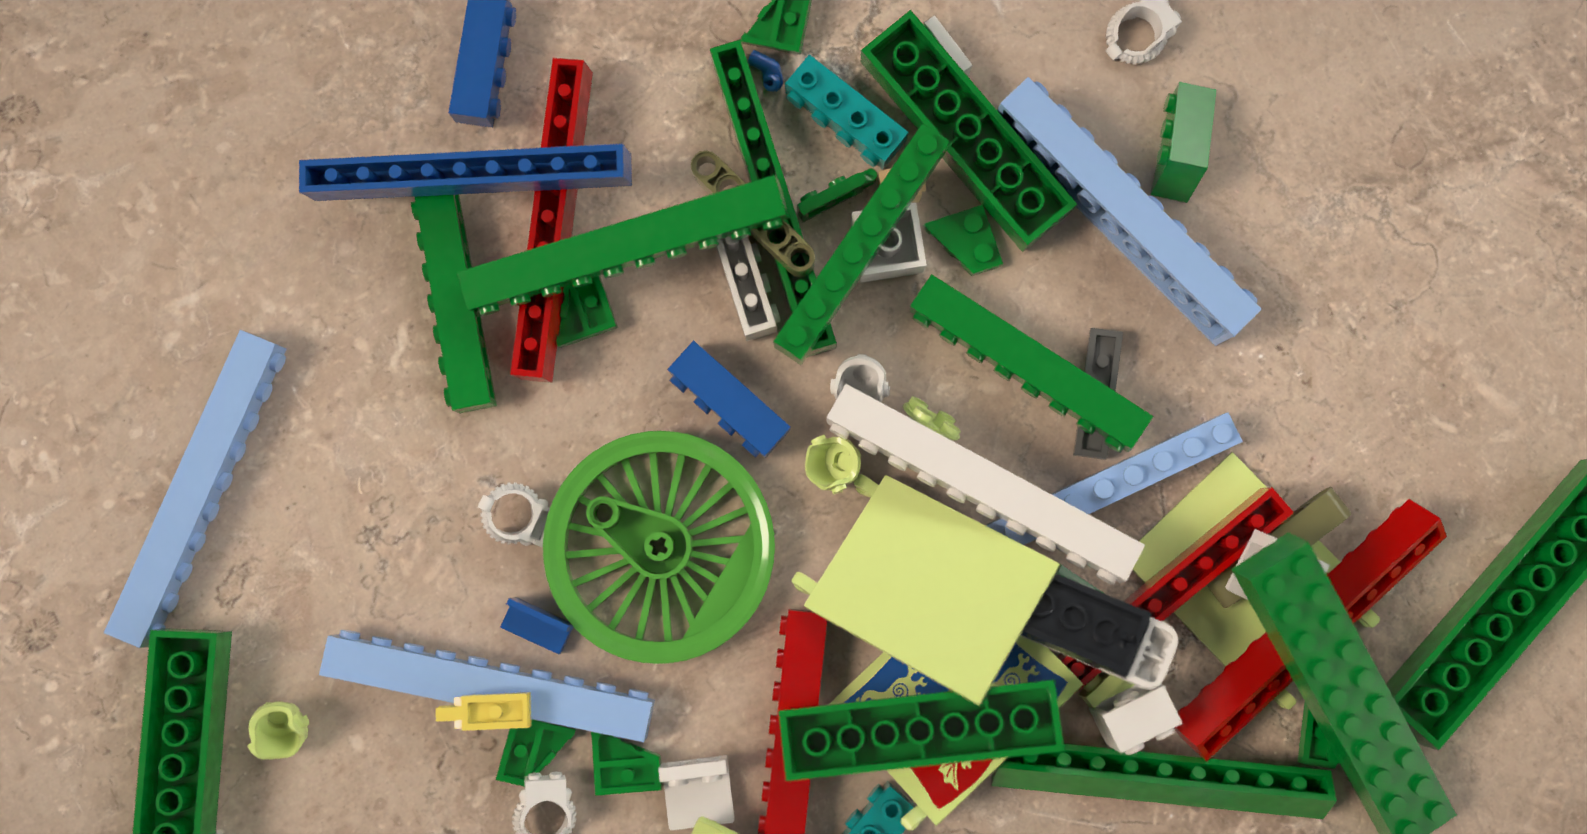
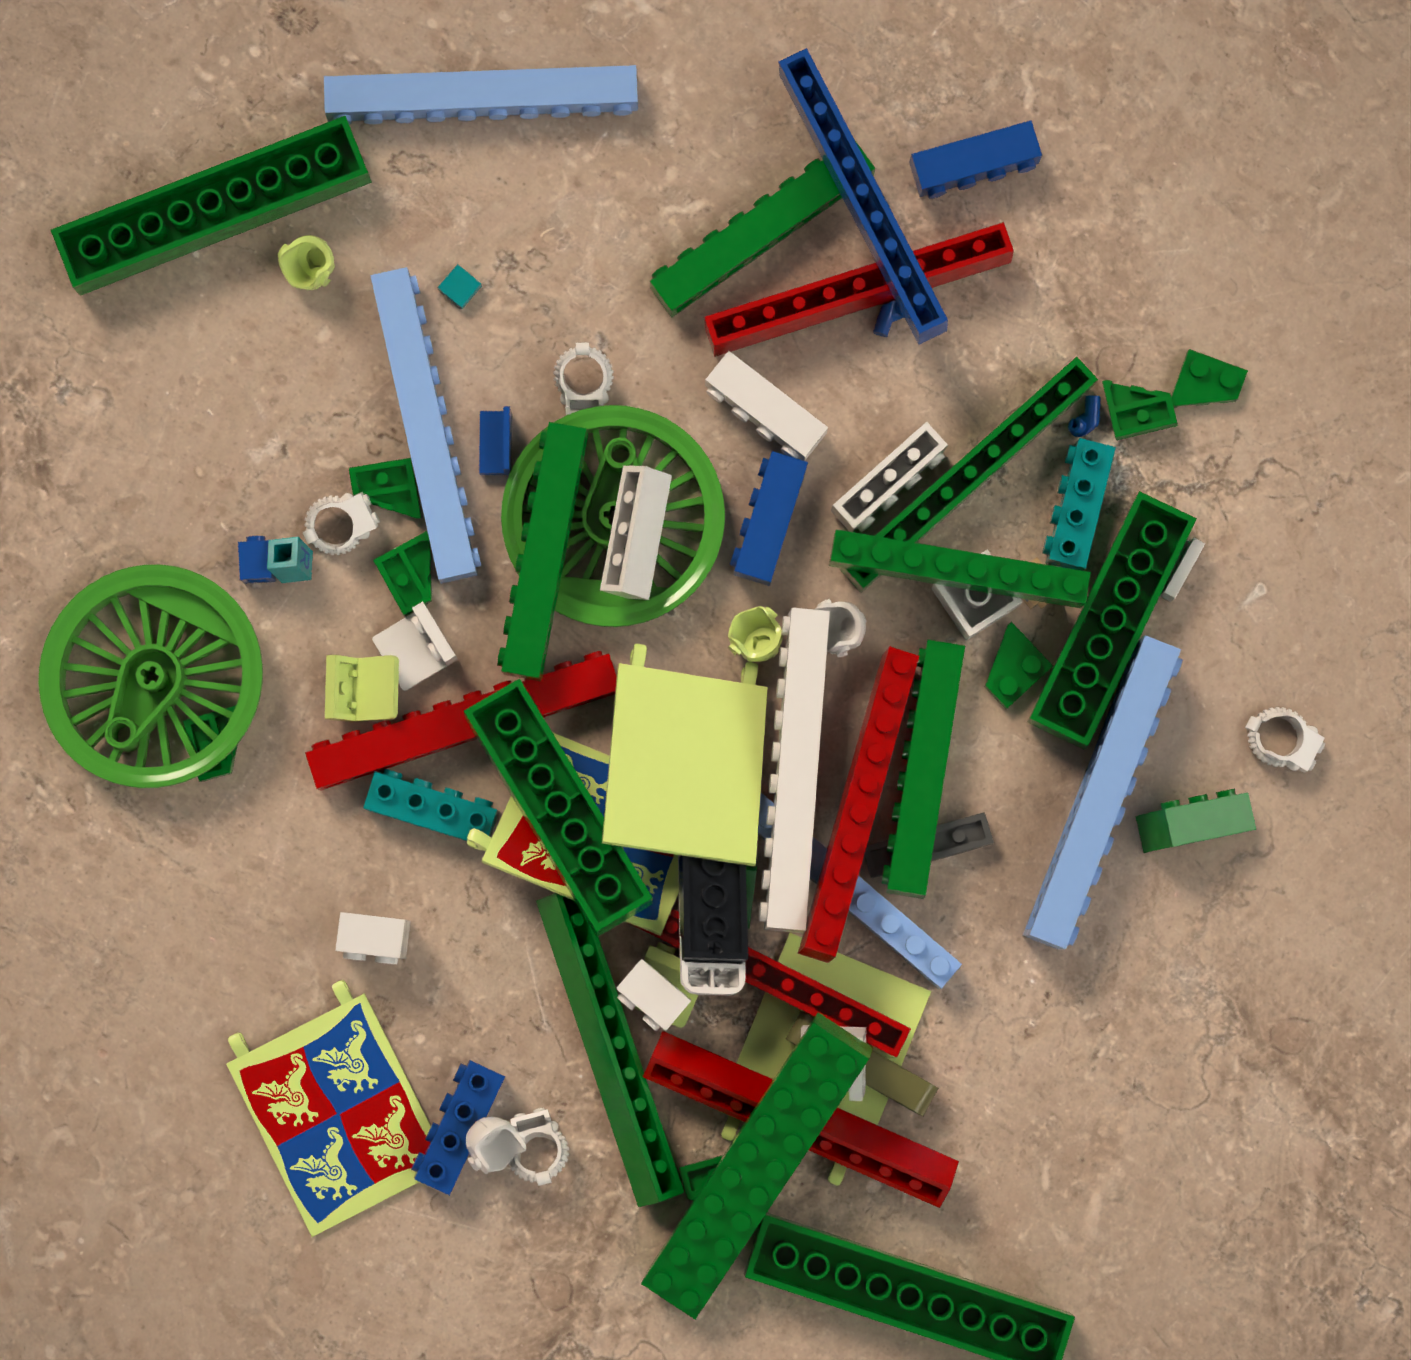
camera: 60 degrees right, 0 degrees up
(372, 592) = (459, 286): none -> teal tile
(488, 711) = (405, 434): light yellow hinge -> none
(584, 313) = (794, 354): green wing -> none
(588, 206) = (888, 313): none -> blue arm
(621, 356) = (765, 406): none -> white brick
(624, 245) = (861, 362): green brick -> none
(656, 508) = (637, 528): none -> white brick
(664, 628) = (544, 551): none -> green brick
(782, 252) = (946, 447): olive beam -> none
(838, 192) = (1004, 531): green hinge -> none
(940, 423) = (833, 711): yellowish green dish -> none
(1042, 441) = (858, 805): none -> red brick

